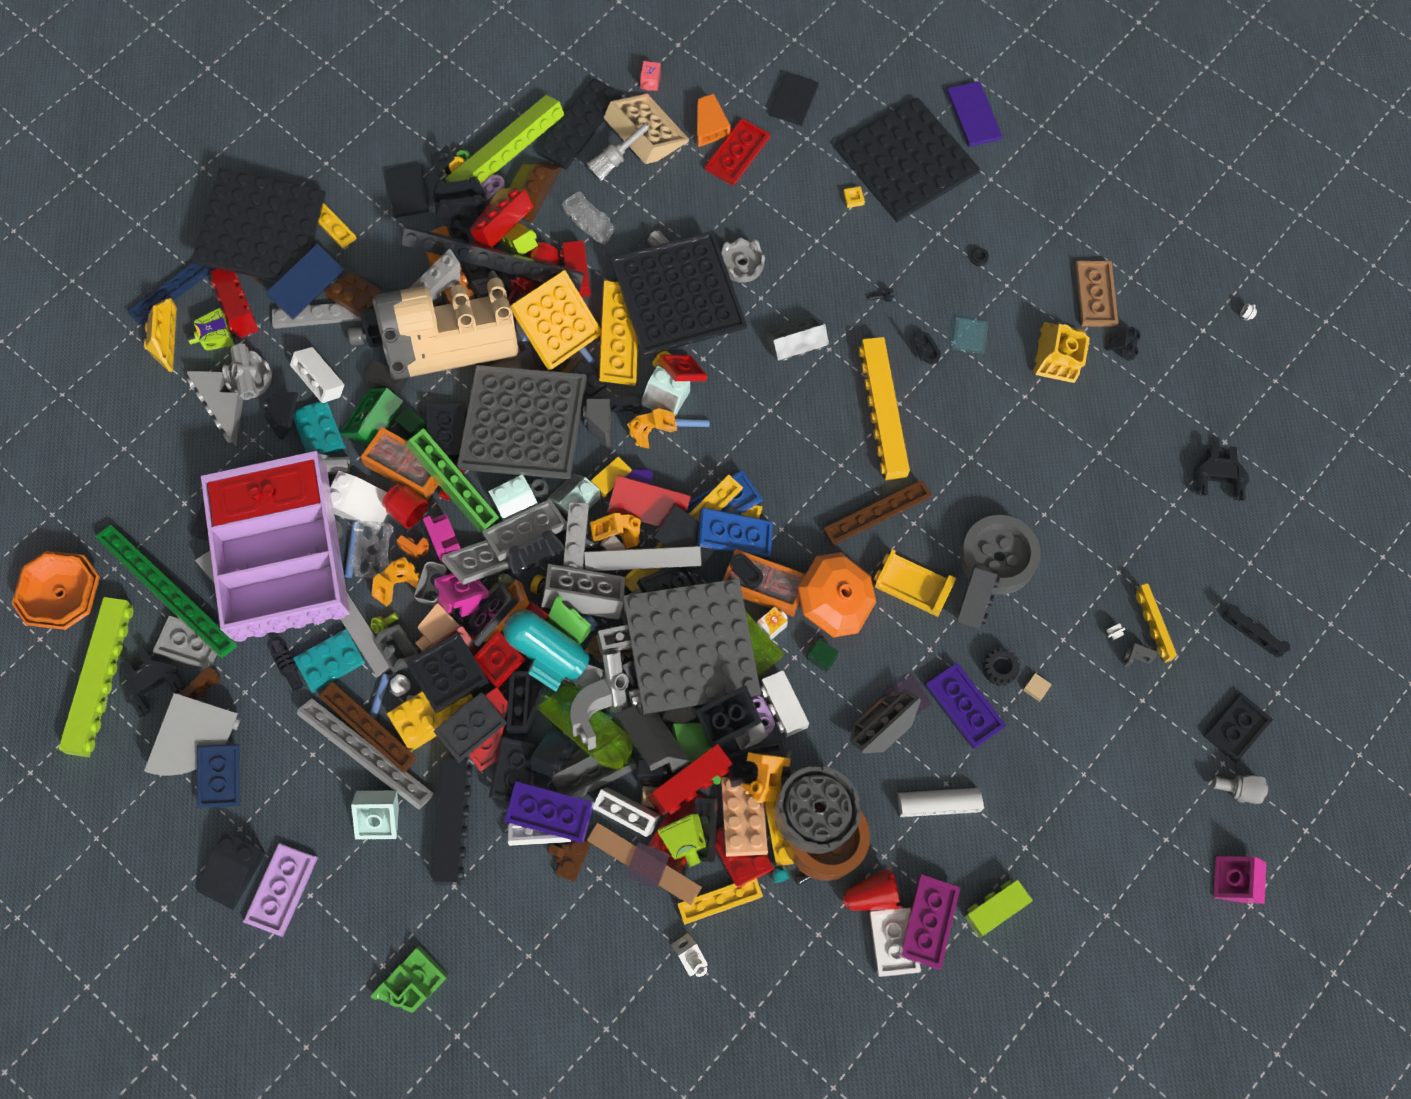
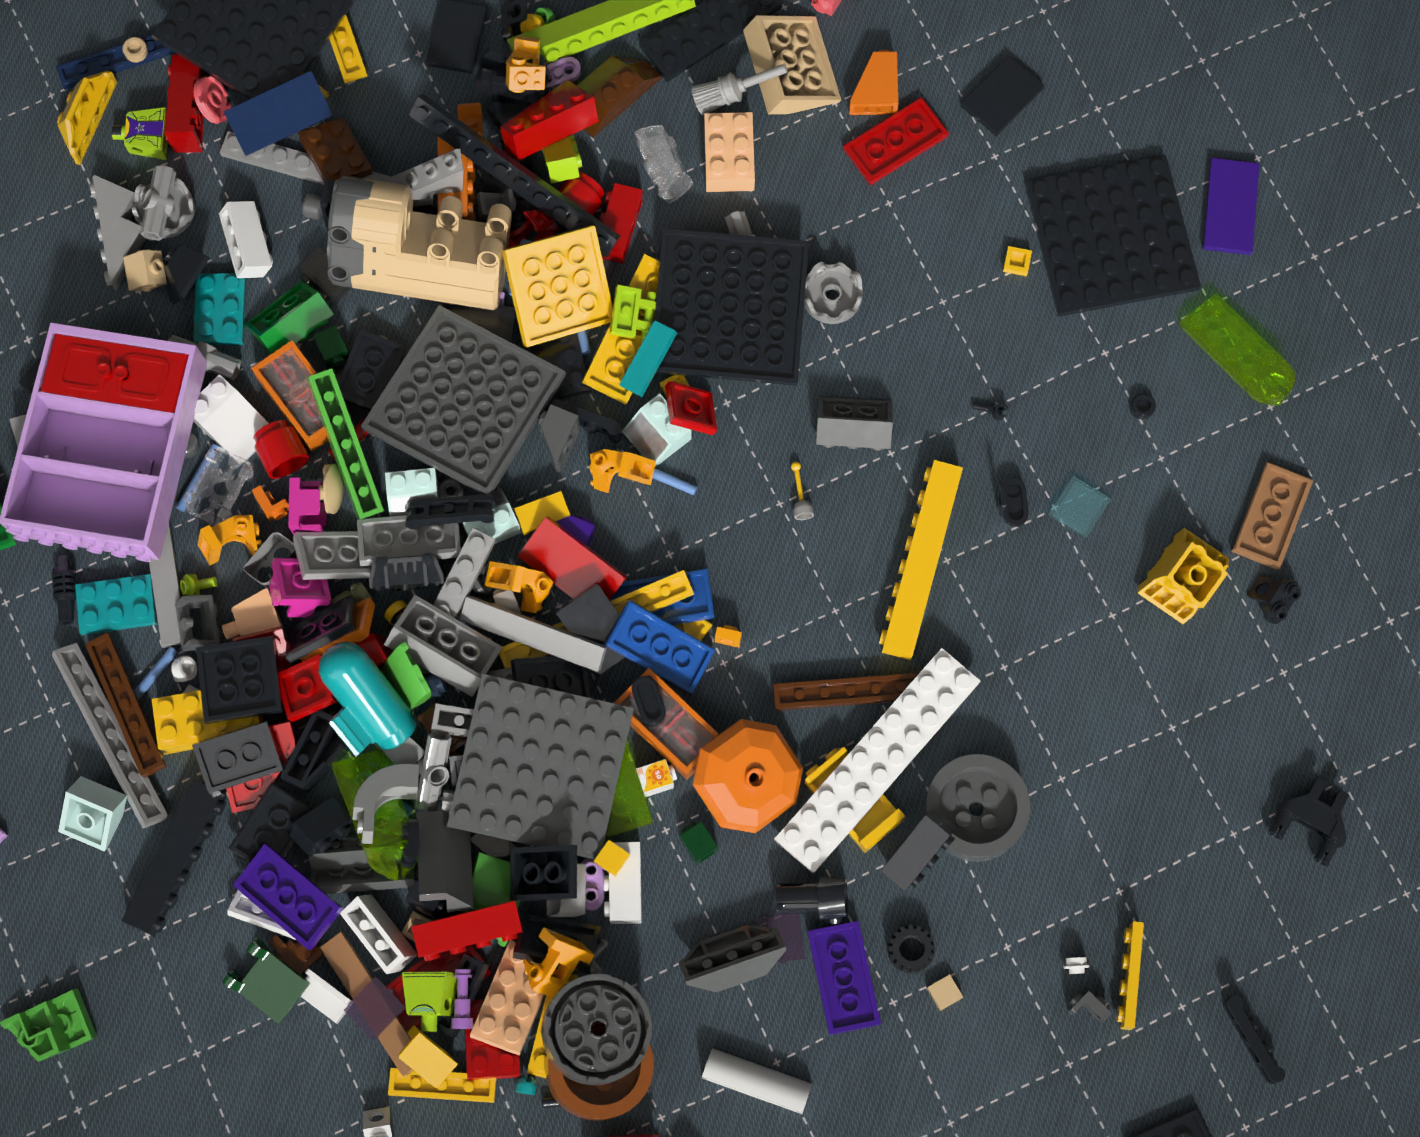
camera: 25 degrees right, 5 degrees up
(181, 278) = (135, 49): none -> tan tile
(252, 290) = (211, 99): none -> coral tile
(252, 421) = (145, 270): none -> tan head
(455, 517) = (332, 488): none -> tan dish
(468, 186) = (521, 74): none -> light orange tile
(547, 498) = (450, 510): none -> black plate
(562, 881) = (269, 984): none -> dark green flag
(605, 873) = (325, 997): none -> white panel
(610, 323) = (626, 311): none -> lime plate
(621, 728) = (410, 852): none -> black plate
(630, 196) = (729, 152): none -> light nougat brick
(639, 346) = (648, 358): none -> teal tile
(702, 884) = (427, 1057): none -> yellow panel
(711, 833) = (462, 1003): none -> medium lavender piece
(769, 688) = (612, 858): none -> yellow tile
(777, 509) = (728, 636): none -> light orange plate
(788, 406) = (803, 509): none -> light grey hinge
(918, 551) = (877, 760): none -> white plate
(927, 656) = (824, 898): none -> black piece
(1026, 198) = (1240, 351): none -> clear neon green plate

